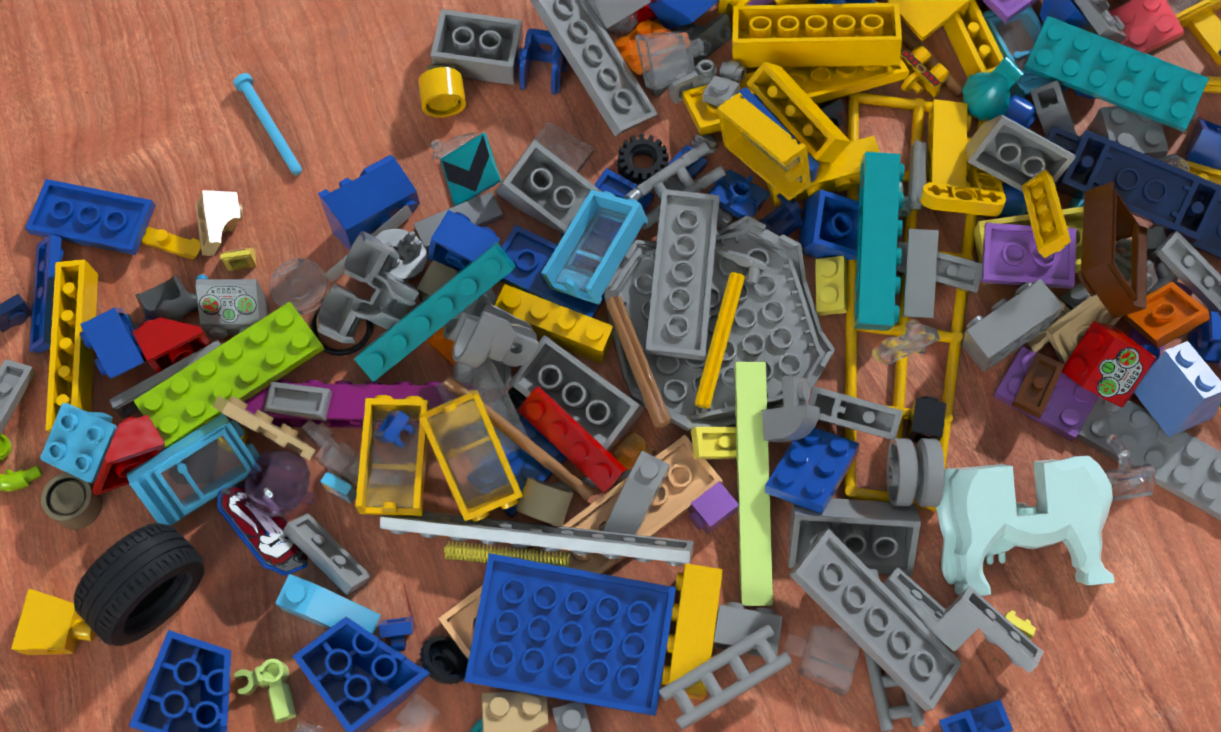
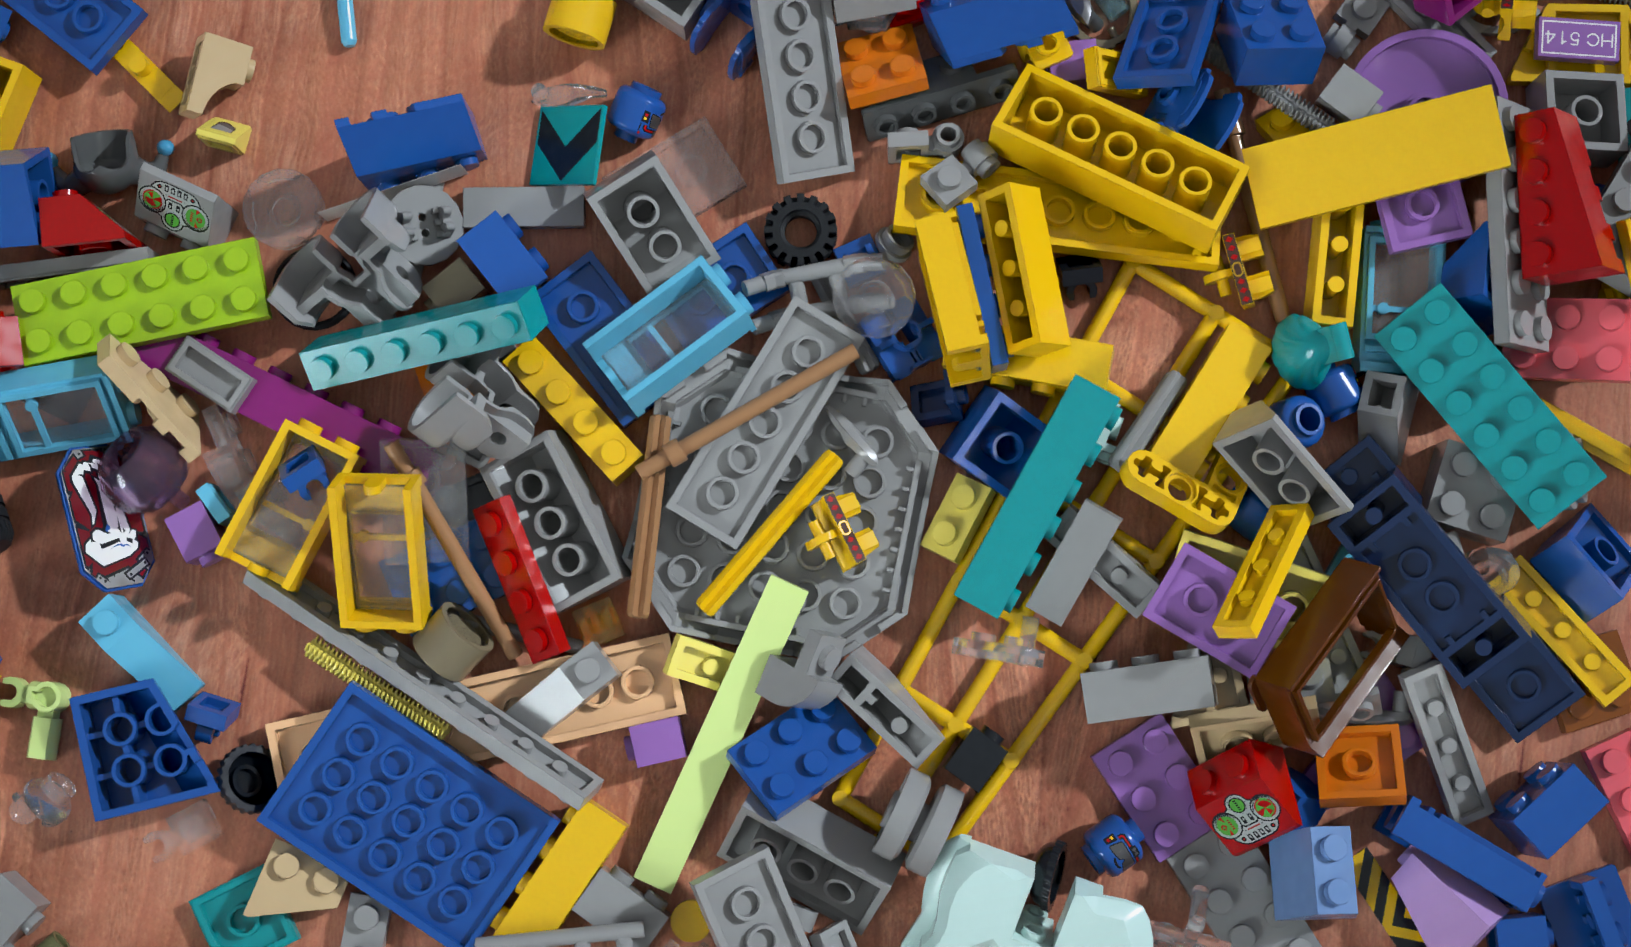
camera: 30 degrees right, 15 degrees up
(327, 553) = (169, 583): light grey plate -> none
(334, 512) = (196, 534): none -> medium lavender brick
(504, 133) = (636, 112): none -> blue head
(637, 309) = (676, 451): none -> medium nougat bar
(667, 57) = (894, 105): clear torso -> none
(713, 169) = (874, 297): none -> clear tile
(764, 318) = (834, 534): none -> yellow hips
(795, 618) = (688, 921): none -> yellow tile
(1010, 458) = (1048, 873): none -> black hat
(1037, 385) = (1143, 778): reddish brown plate -> none
(1041, 438) = (1113, 845): none -> blue head

